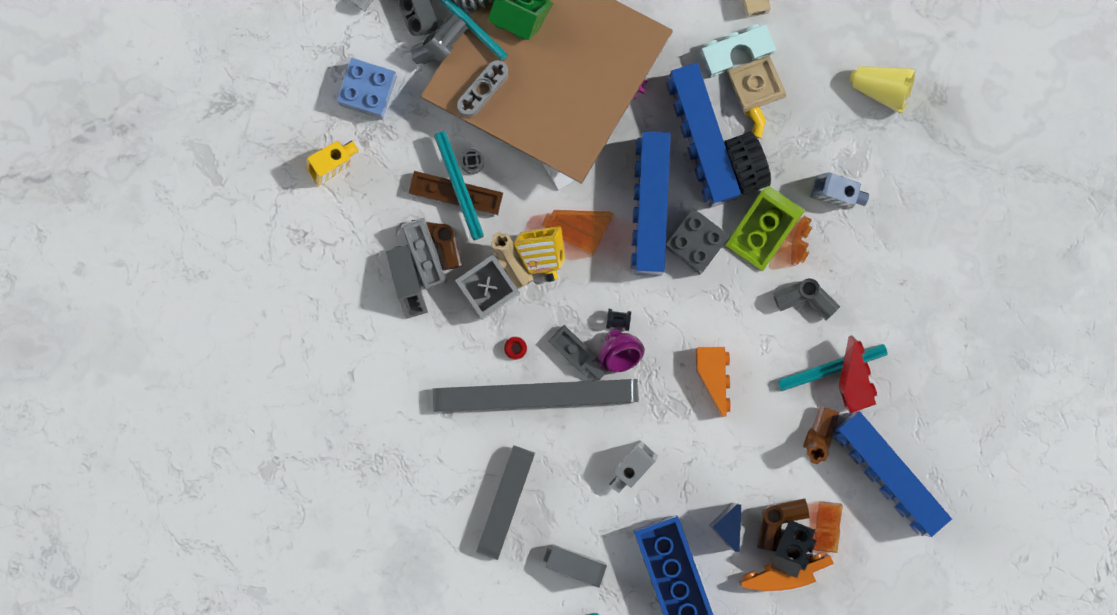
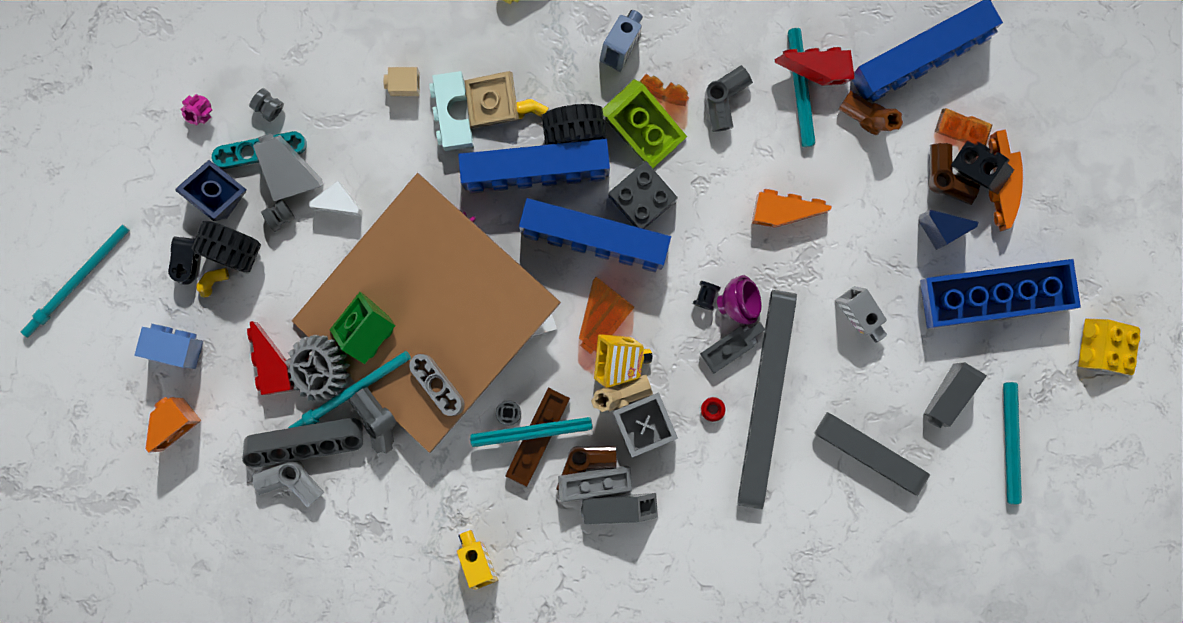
camera: 70 degrees left, 0 degrees up
(367, 88) = (406, 507): medium blue brick -> none

